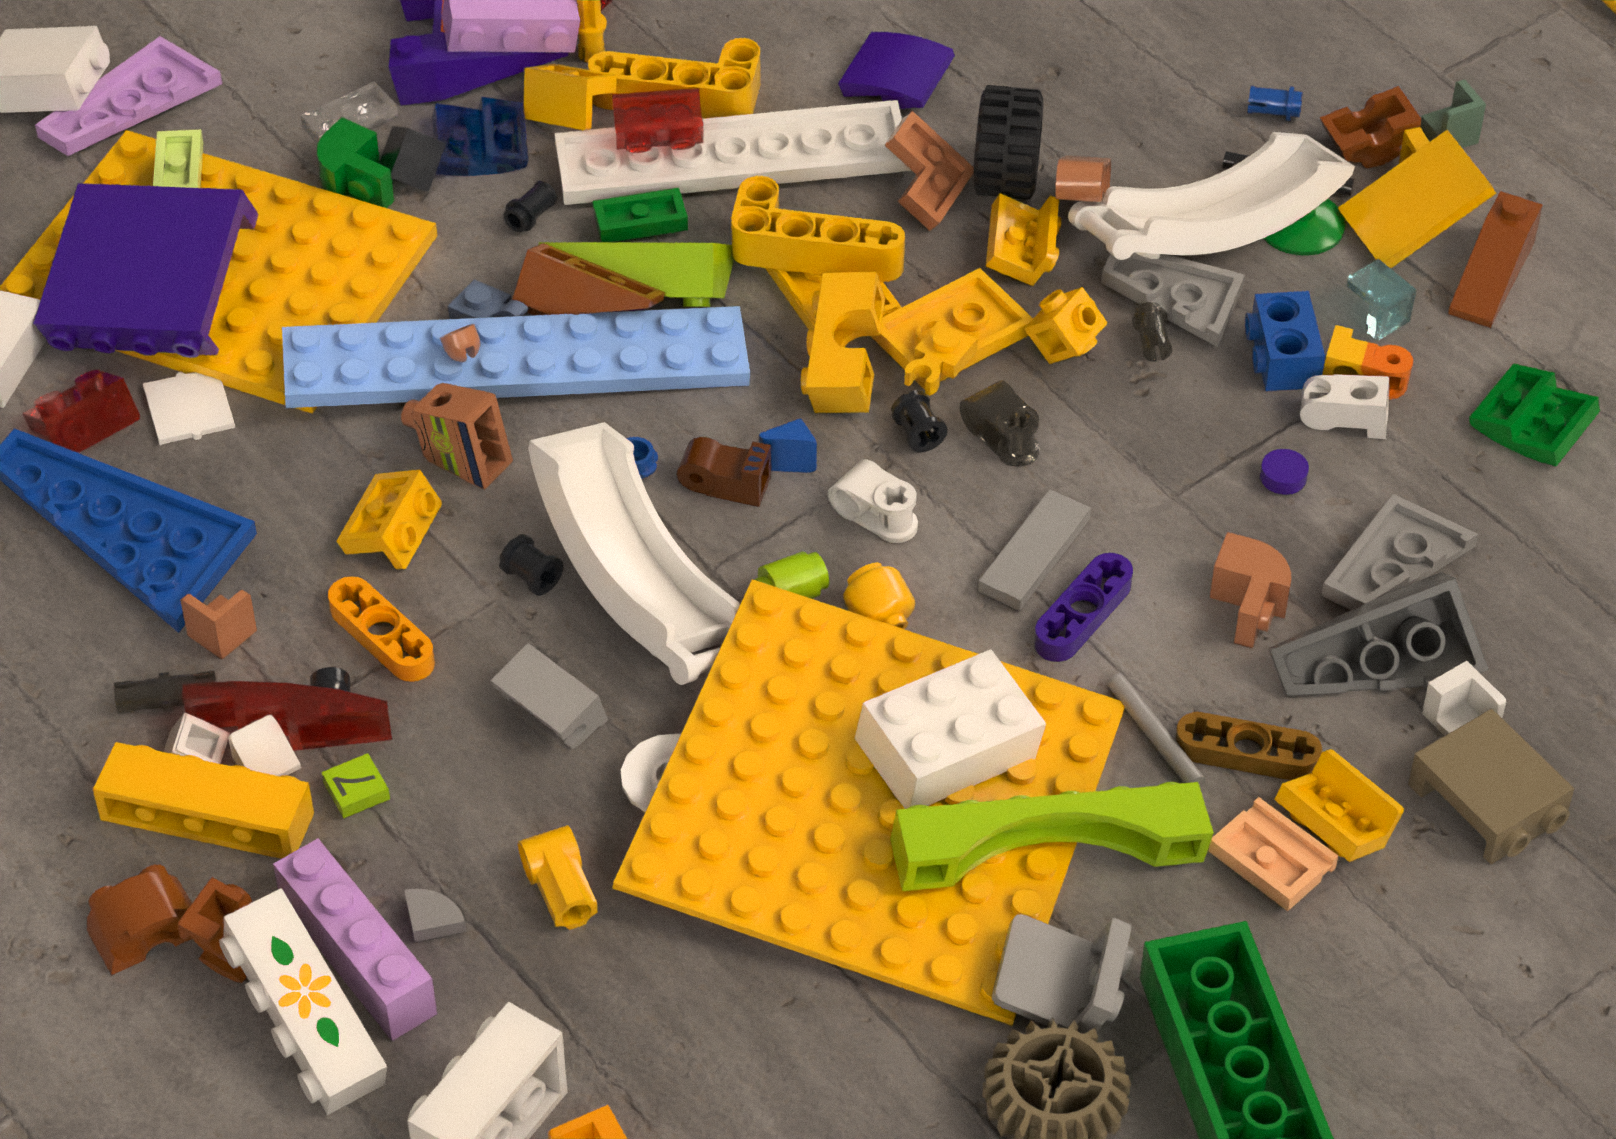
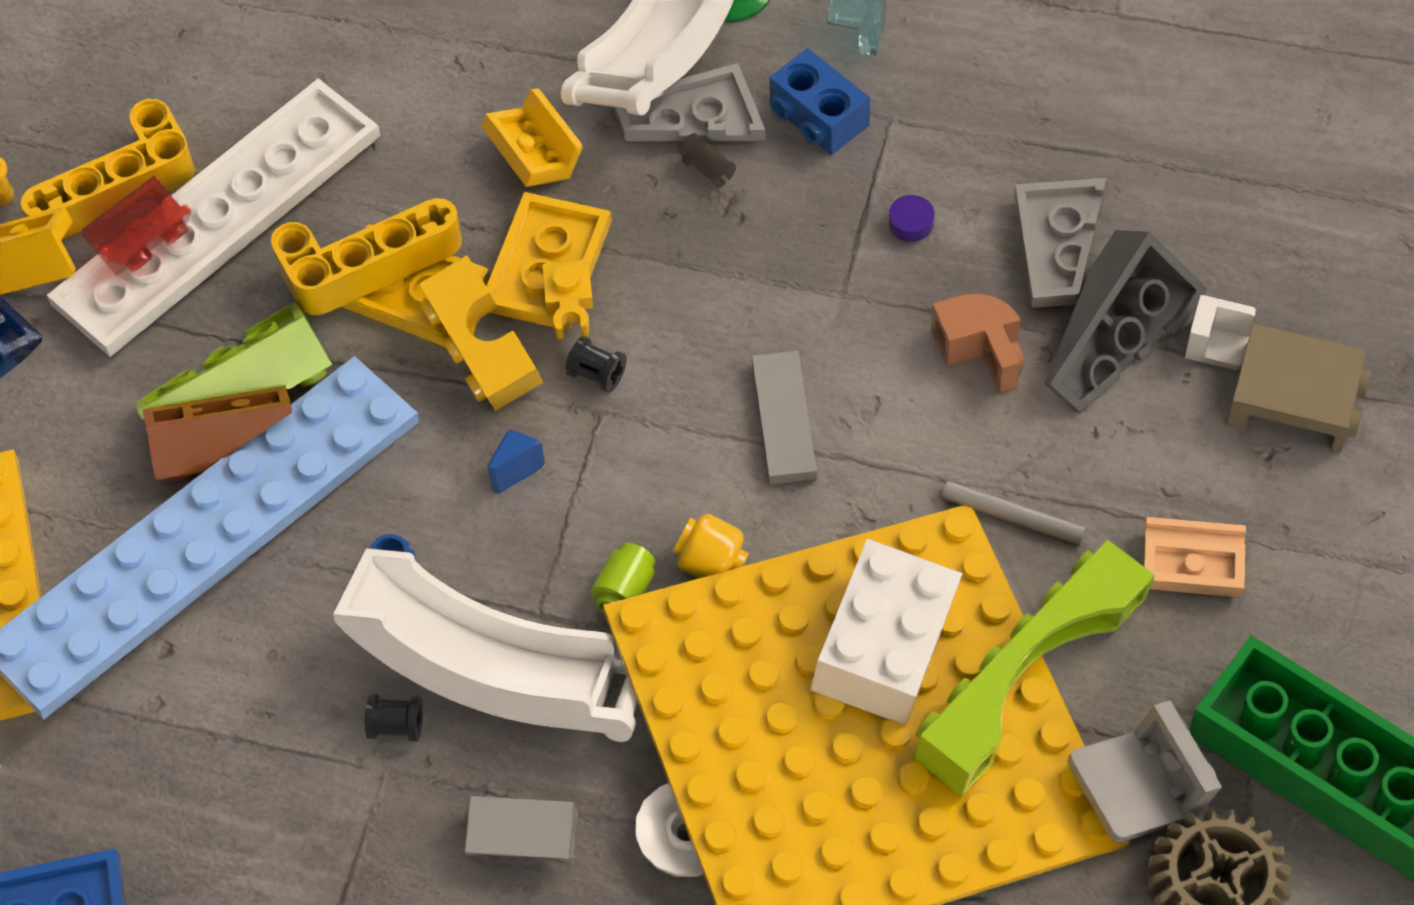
camera: 35 degrees left, 10 degrees up
(383, 647) = (275, 875): light orange beam -> none
(391, 517) = (229, 758): yellow bracket -> none
(461, 342) = (161, 554): nougat hinge -> none
(461, 432) = (224, 637): nougat torso -> none
(484, 301) = (130, 499): sand blue plate -> none
(523, 212) = (83, 385): black pin -> none
(640, 215) = (190, 325): green plate -> none
(726, 470) = (478, 516): reddish brown leg -> none
(876, 502) = (623, 460): white piece -> none
(897, 69) = (287, 48): dark purple slope -> none
(938, 170) = (411, 121): nougat plate -> none
(1003, 423) = (660, 317): clear smoke piece -> none
(1008, 141) = (458, 62): black tyre -> none
(1066, 325) = (641, 200): yellow brick -> none
(1082, 178) = (547, 58): nougat beam -> none
(1083, 625) = (856, 458): dark purple beam -> none
(1234, 730) = (1105, 459): pearl gold beam -> none
(1341, 807) = (1210, 482): yellow bracket -> none
(1347, 403) = (912, 127): white leg -> none
(1364, 358) = (897, 84): leg -> none
(1534, 415) = (1049, 45): green slope -> none

